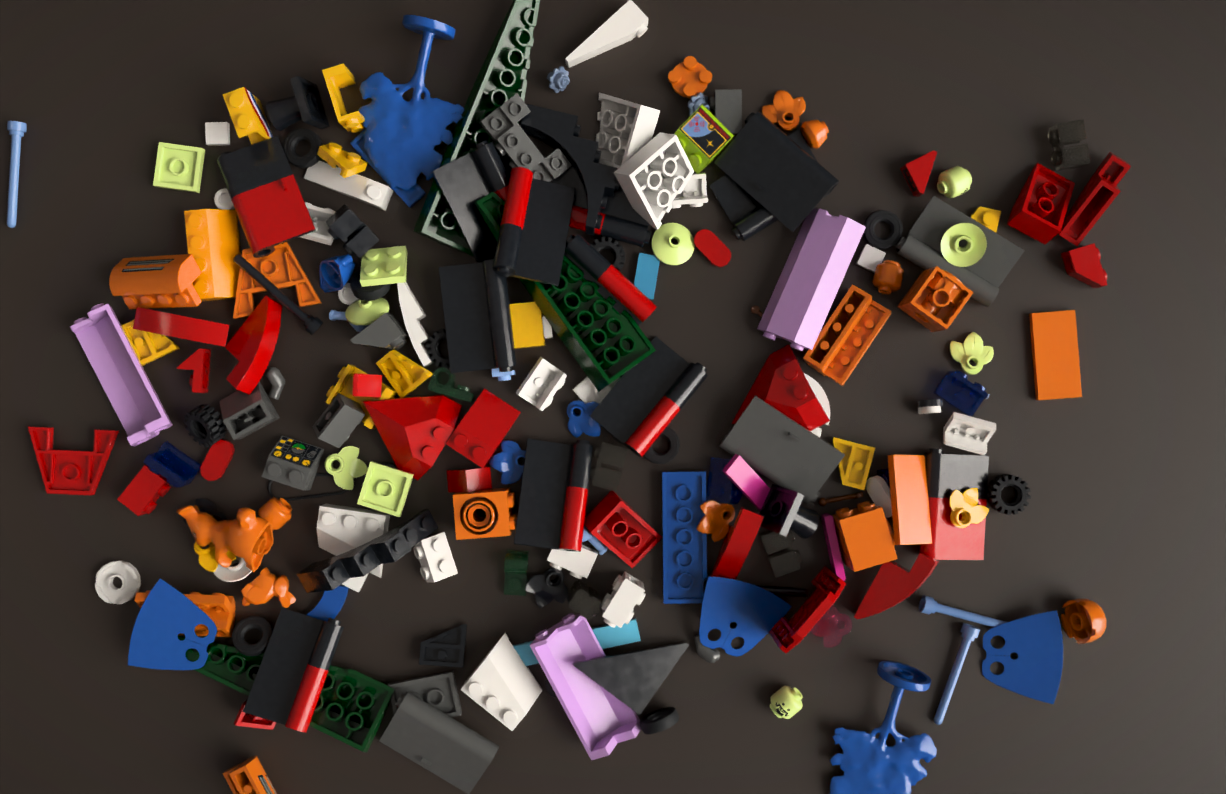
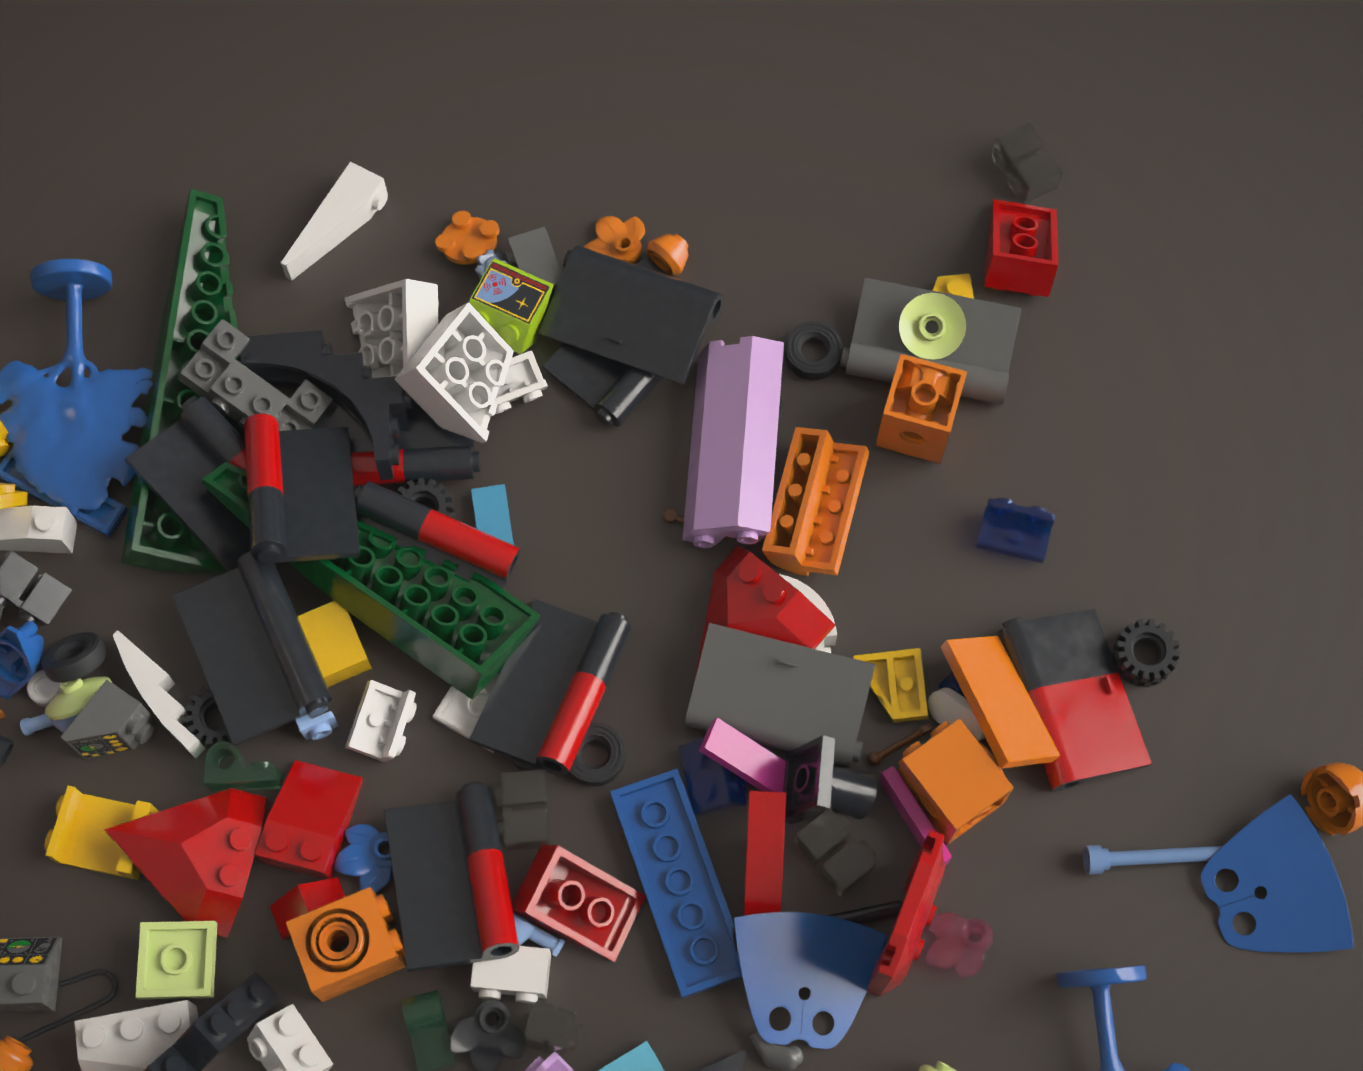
camera: 20 degrees left, 20 degrees down
(338, 420) = (74, 878): dark grey brick -> none
(349, 467) = (110, 953): yellowish green plate -> none
(367, 385) = (104, 805): slope -> none
(384, 266) = (88, 624): yellowish green plate -> none
(402, 372) = (158, 773): yellow wing -> none
(547, 329) = (366, 638): white tile -> none
(558, 79) = (280, 295): sand blue plant -> none
(583, 421) = (464, 758): blue plate -> none
(625, 595) = (610, 1020): white brick -> none
(668, 252) = (517, 473): yellowish green dish -> none
(712, 248) = (577, 451): red tile -> none
(713, 520) = (715, 838): orange plate -> none
(870, 258) = (812, 393): white tile -> none
(888, 277) = (845, 405): orange head -> none
(894, 585) = (1030, 841): red slope -> none
(918, 172) = (831, 259): red slope -> none
(930, 406) = (977, 564): piece -> none
(954, 182) = (887, 255): yellowish green head -> none
(967, 505) = (1090, 685): yellow plate -> none
(968, 433) = (1049, 581): white bracket -> none
(969, 633) = (1178, 884): medium blue piece -> none
(971, 350) = (1008, 470): yellowish green plate -> none
(1055, 355) = (1129, 439): orange tile -> none
(1085, 265) = (1116, 307): red slope -> none
(1094, 198) = (1090, 217): red slope -> none

